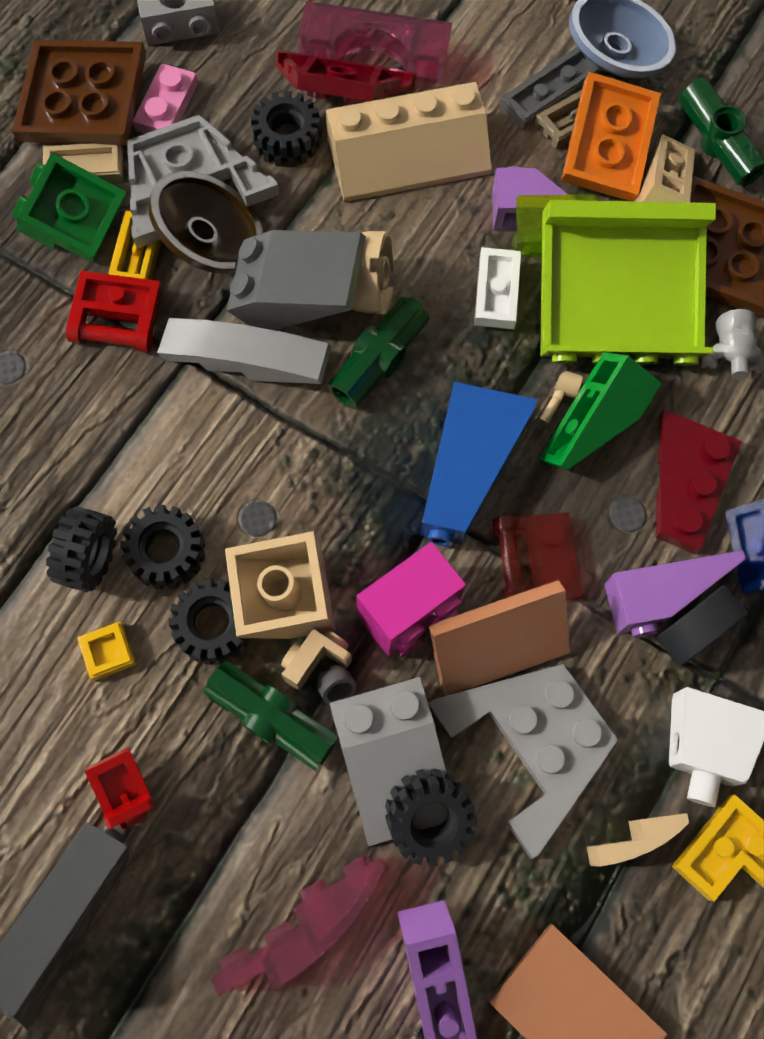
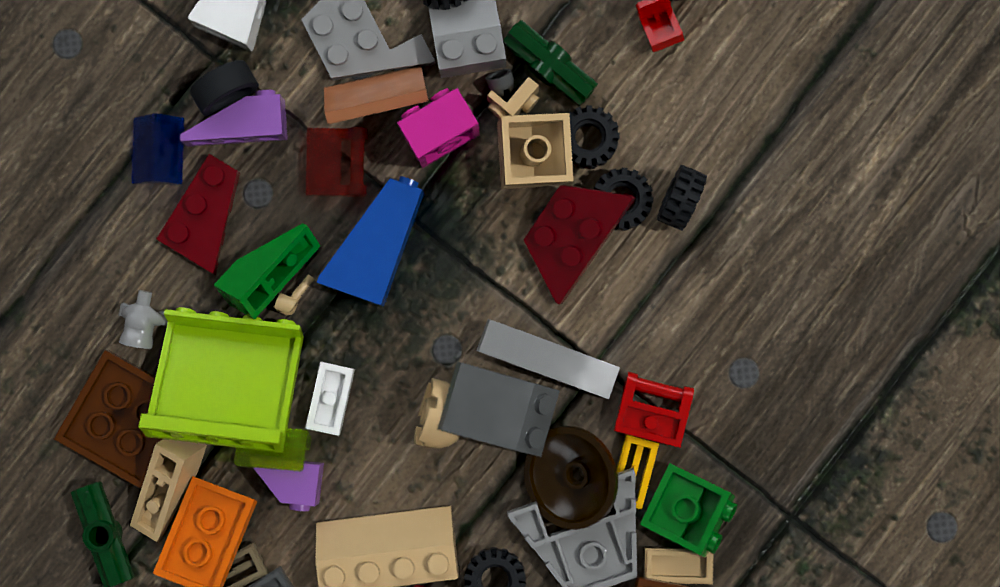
camera: 165 degrees left, 15 degrees up
(106, 651) = (667, 126): yellow tile -> none
(222, 494) = (572, 234): none -> dark red wing
(378, 352) = (437, 348): dark green piece -> none

